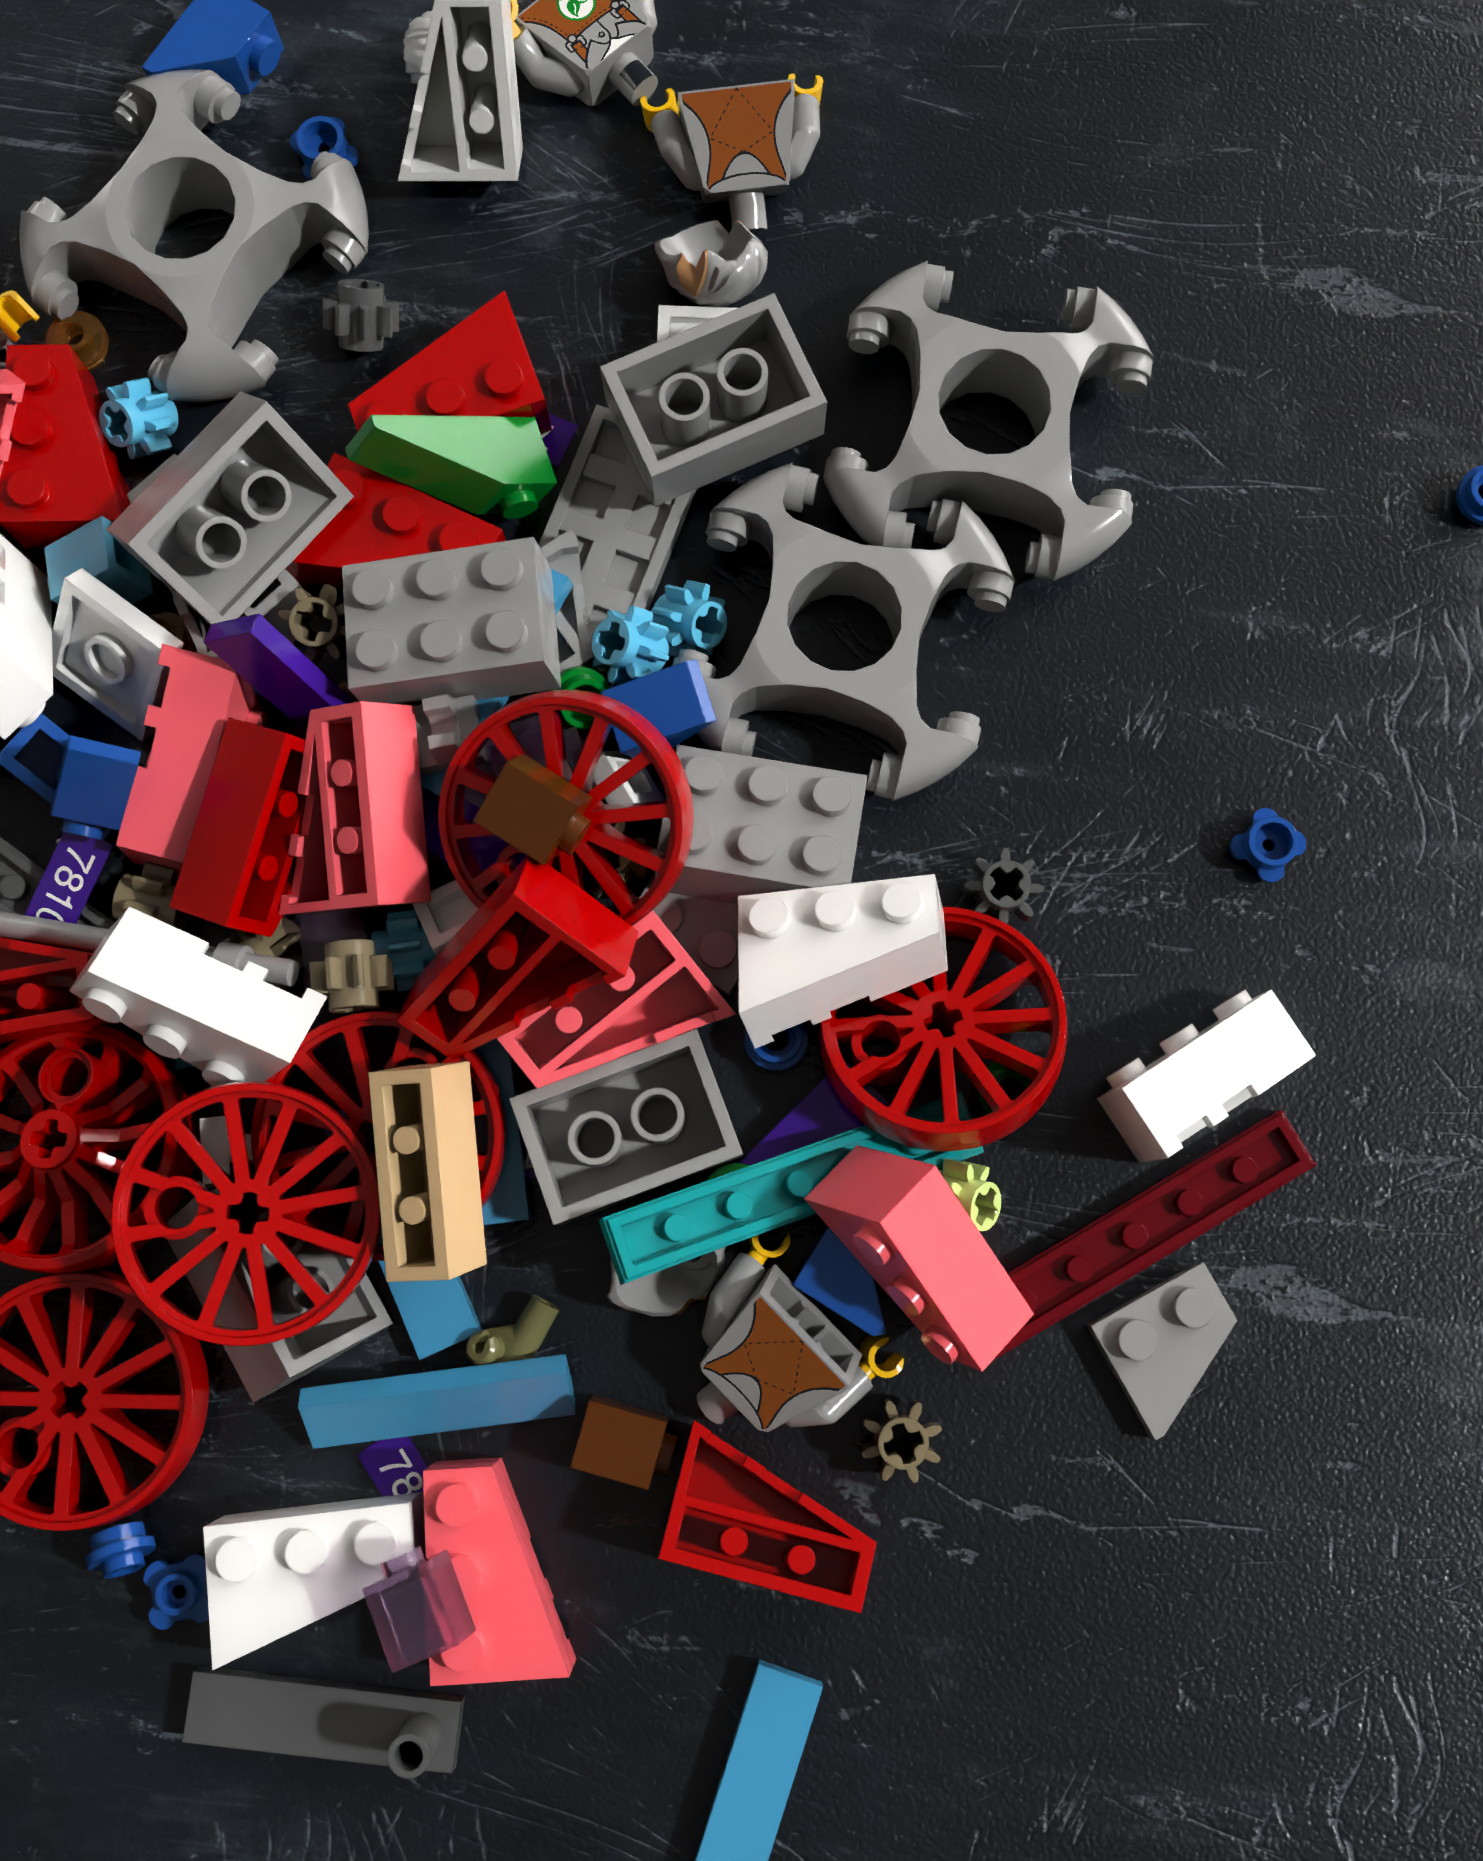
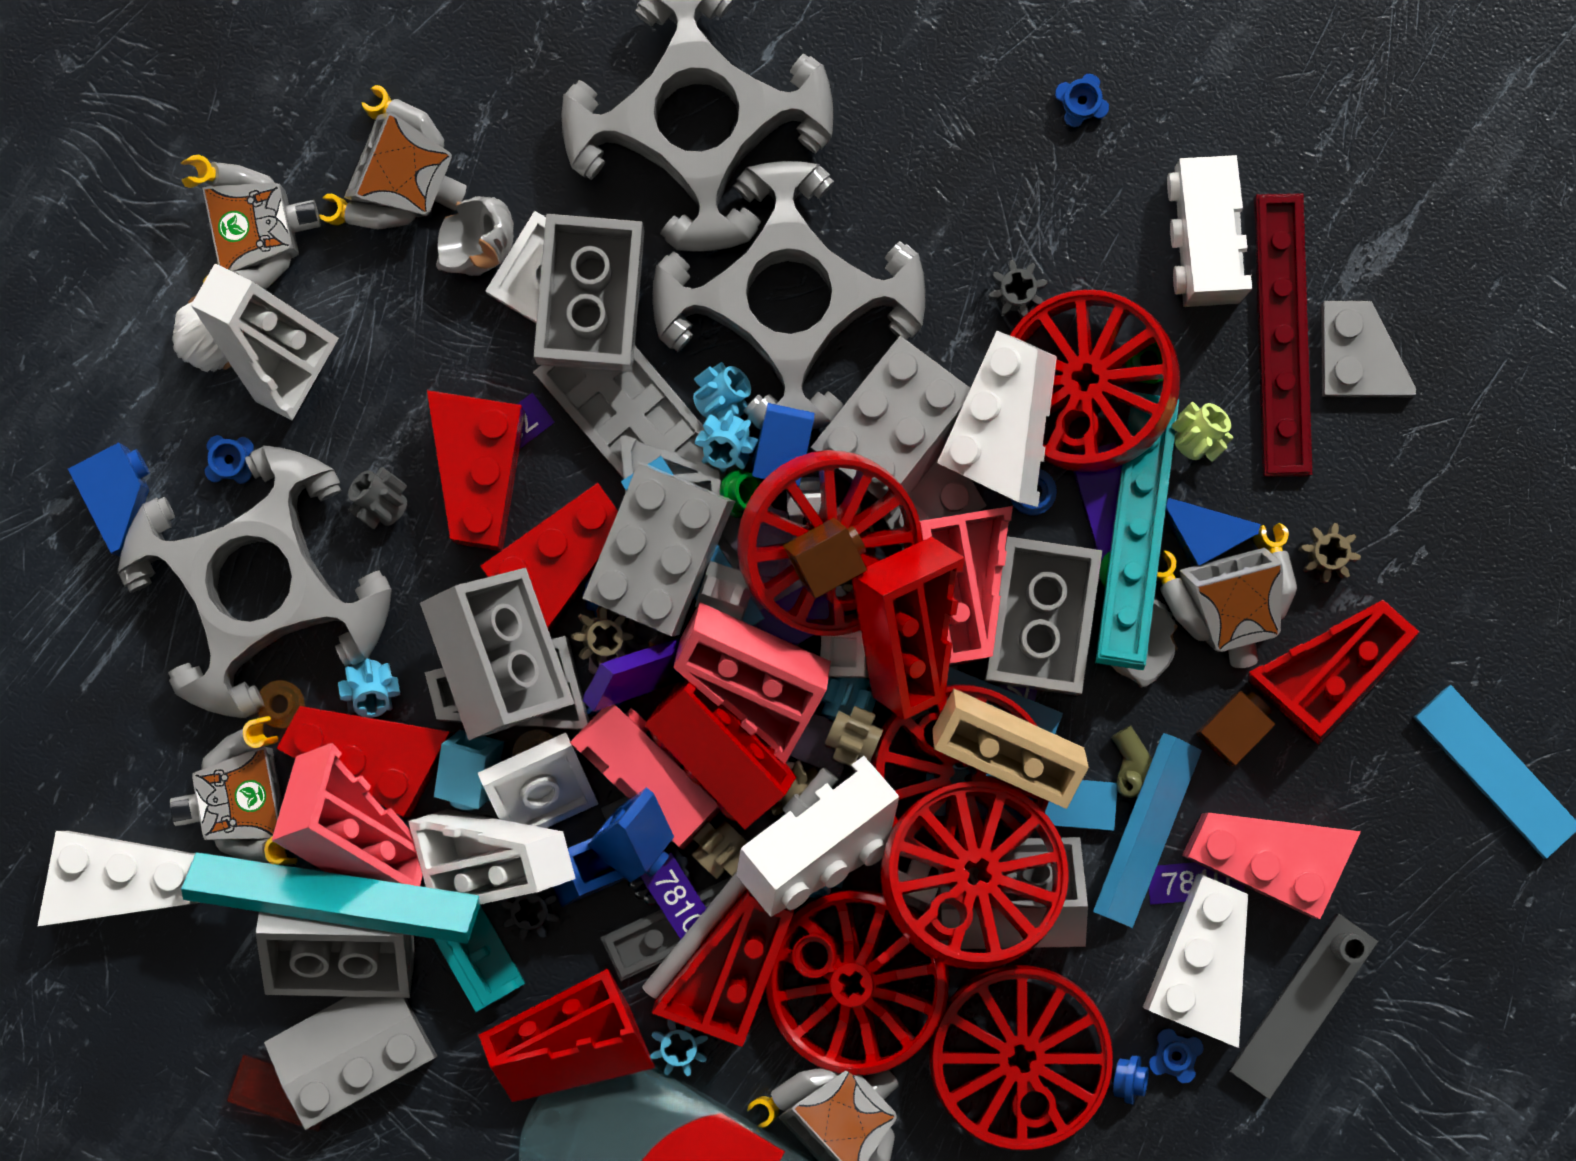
camera: 60 degrees left, 5 degrees up
(418, 1607) = (1271, 894): clear purple brick -> none
(463, 460) = (537, 480): green slope -> none
(923, 1253) = (1224, 473): coral wedge -> none

